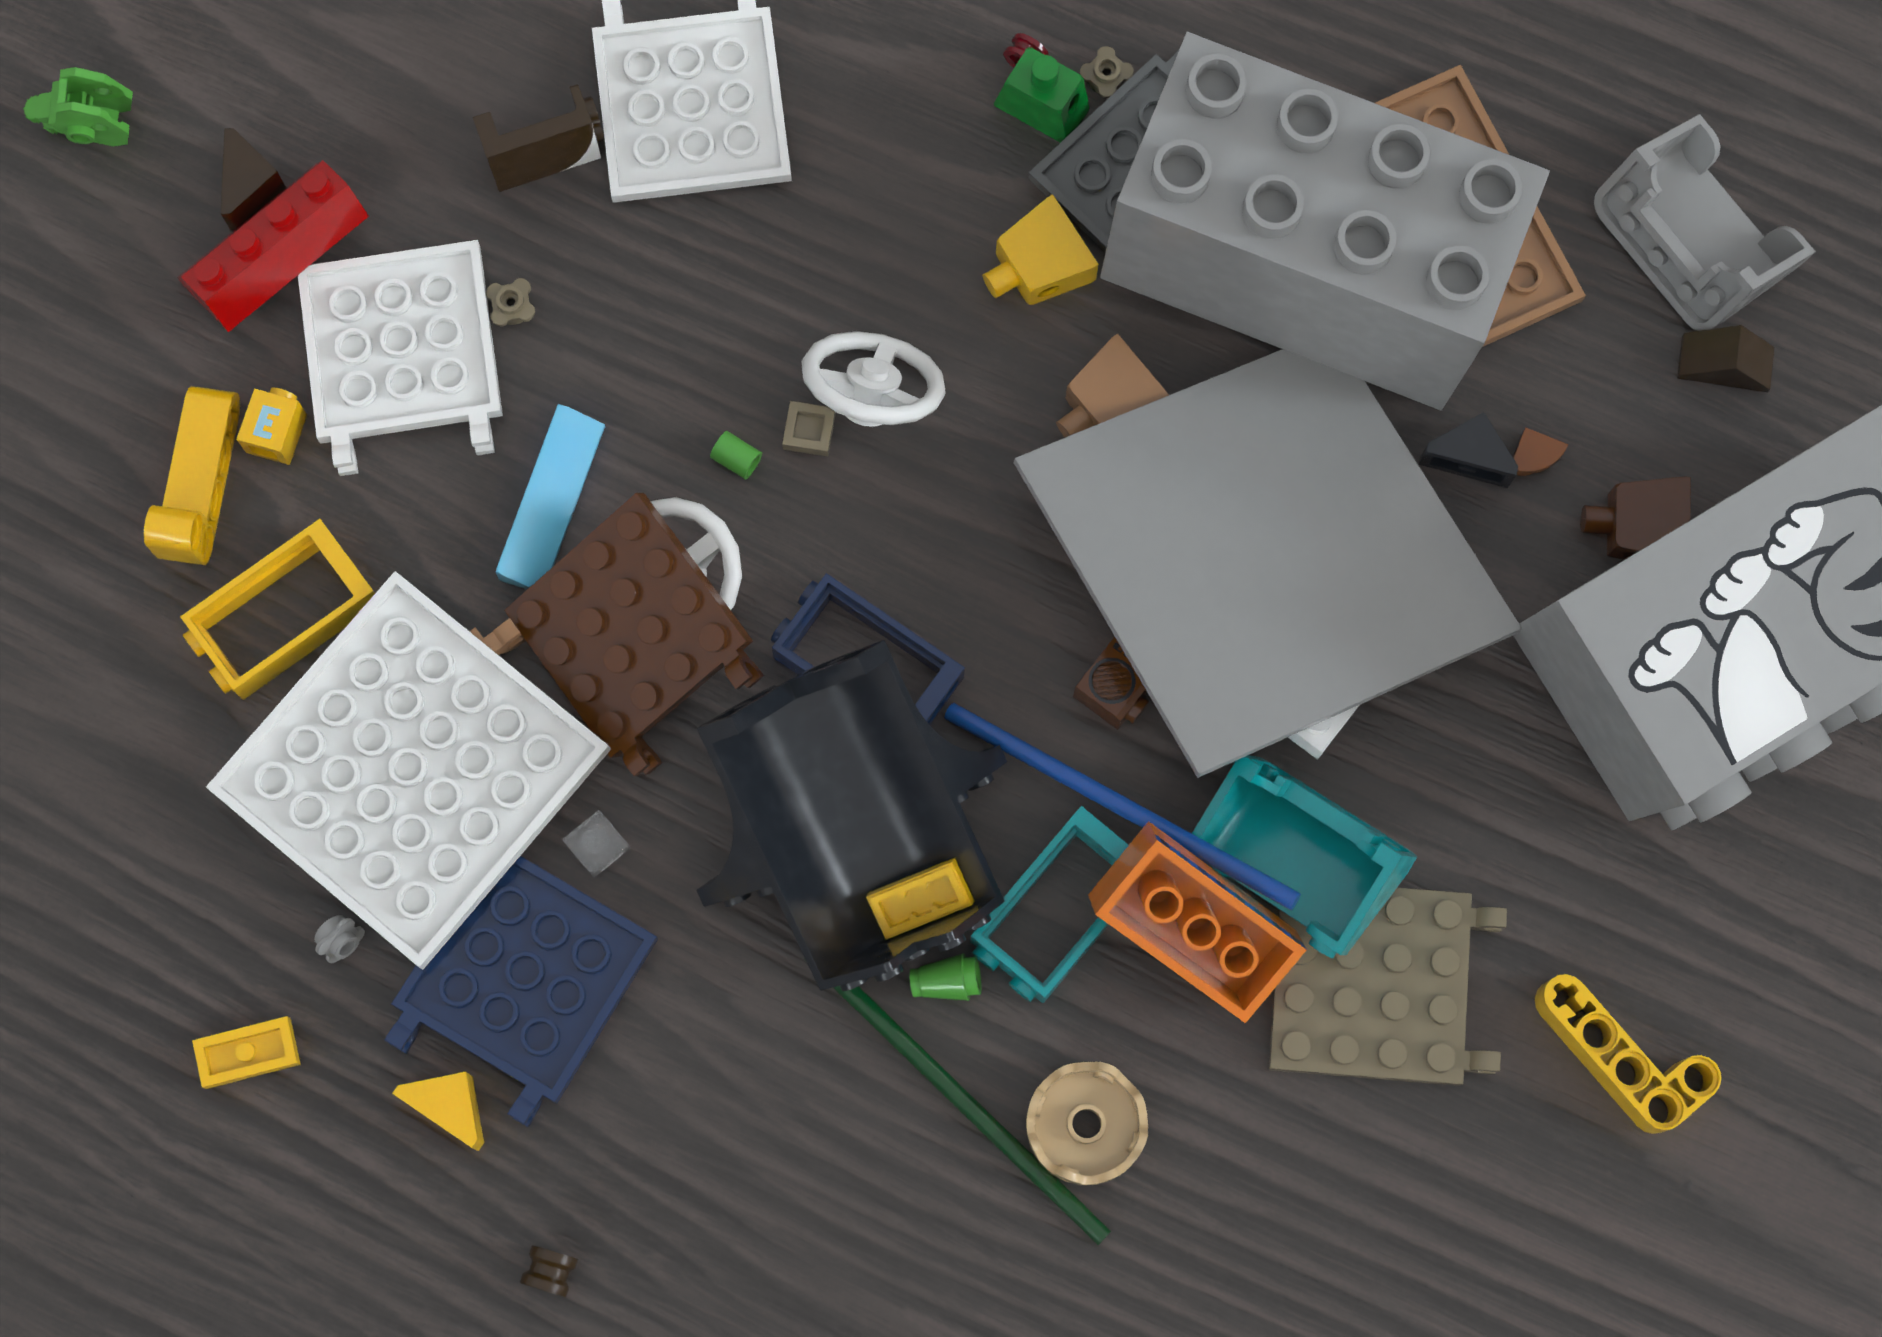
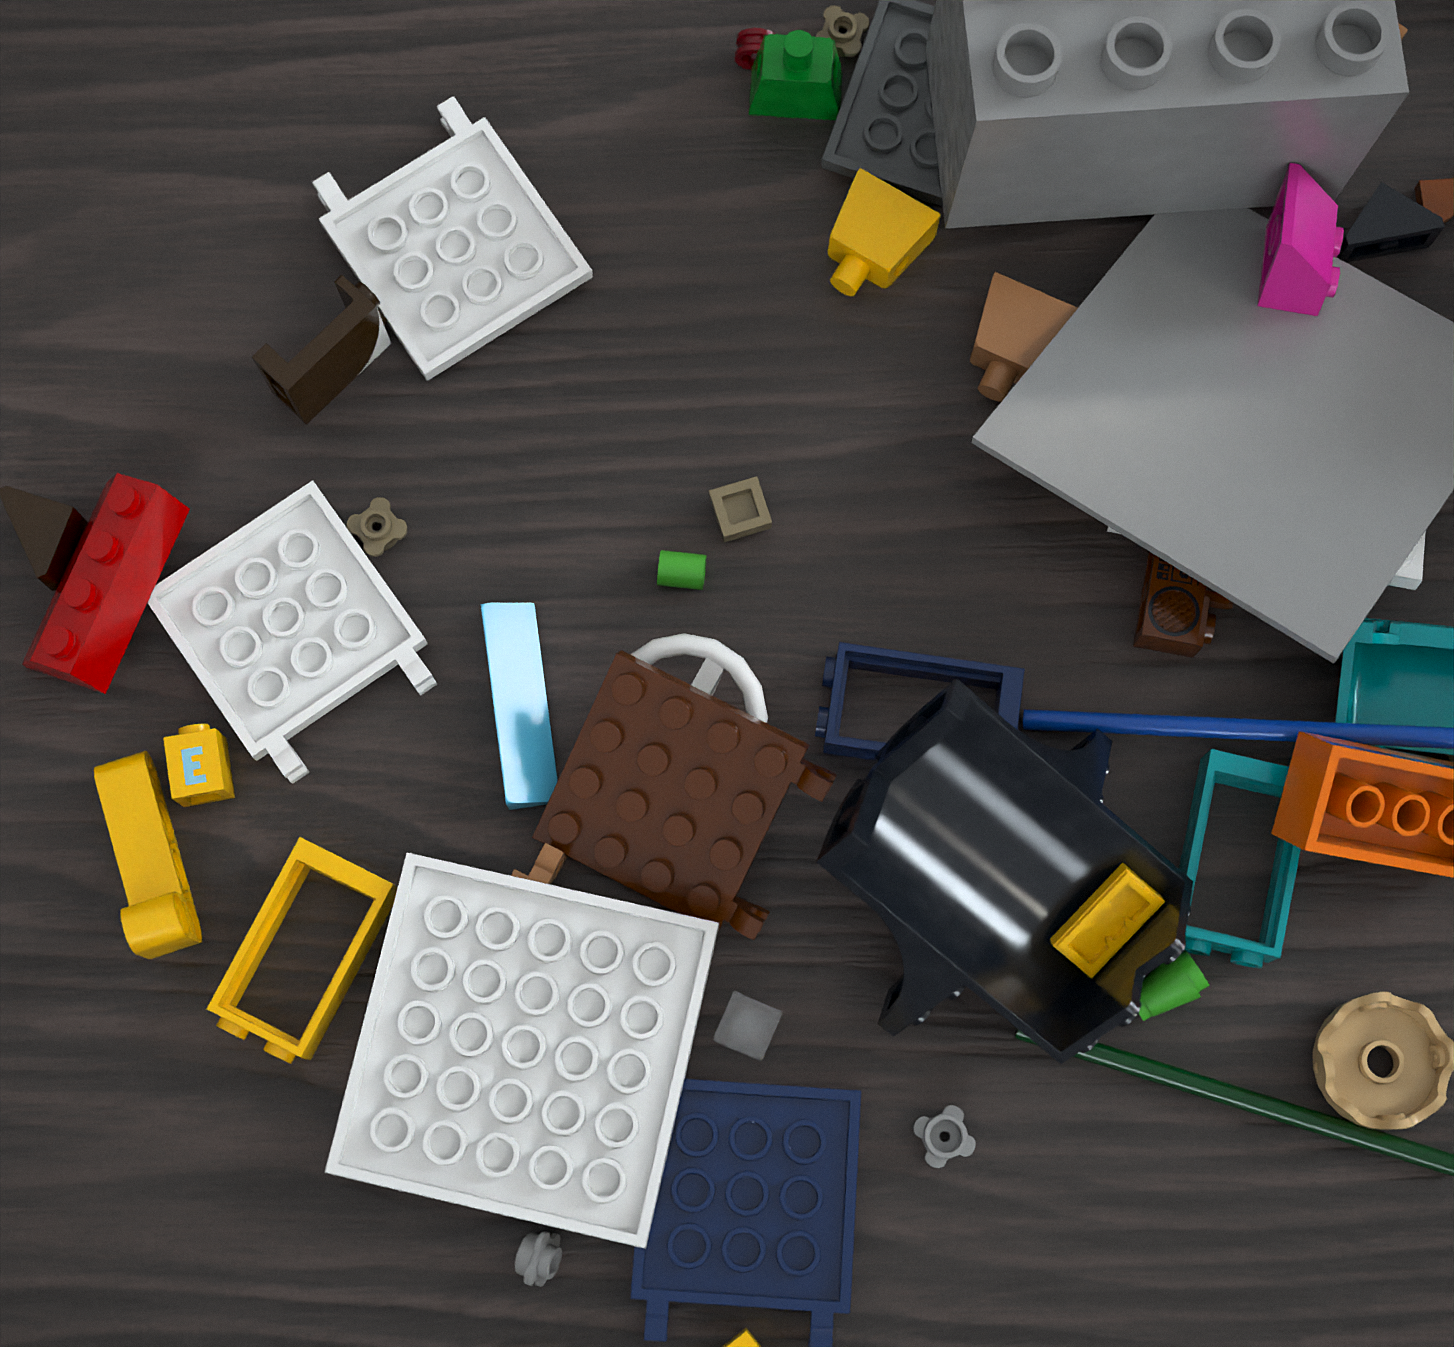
camera: 25 degrees left, 0 degrees up
(695, 997) = (958, 1144): none -> light grey plate
(870, 386) = (784, 436): white piece -> none
(1376, 432) = (1300, 247): none -> dark pink slope

